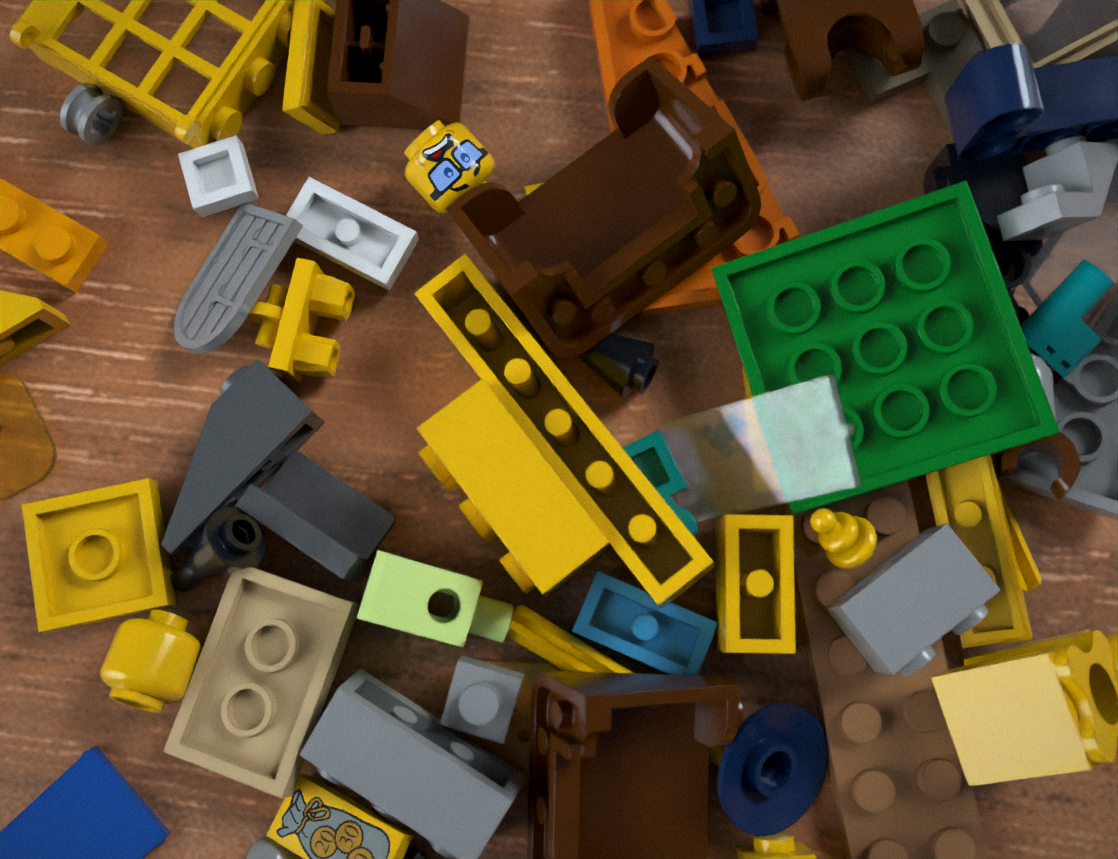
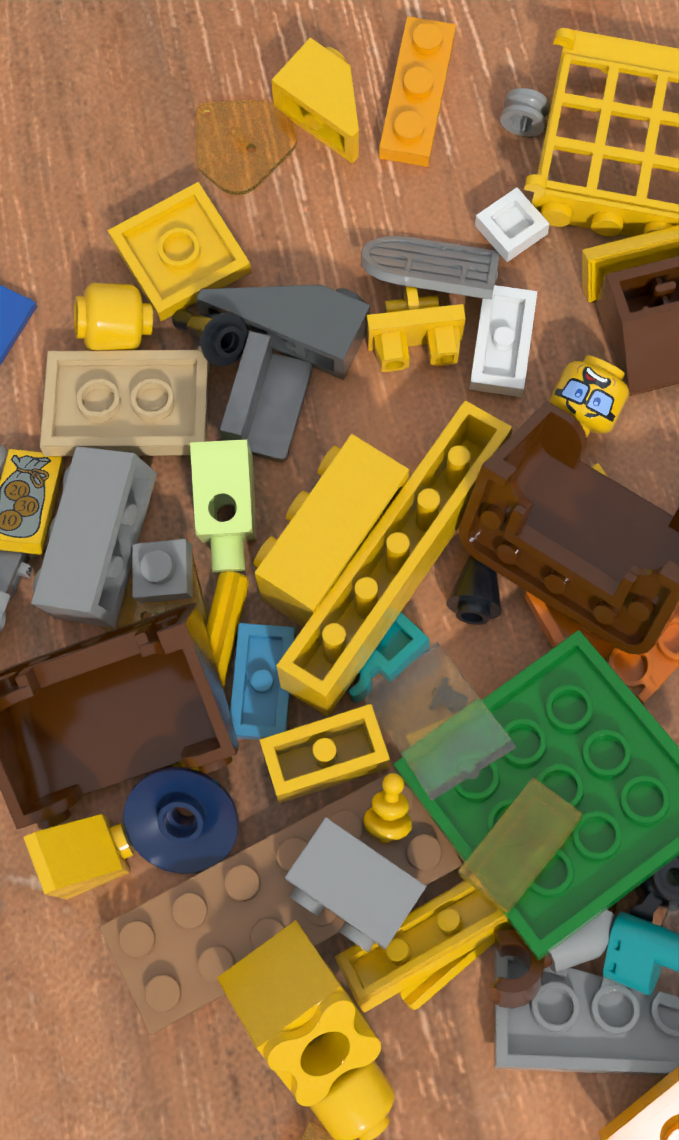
camera: 70 degrees right, 5 degrees down
(936, 408) = (520, 845): none -> clear yellow tile

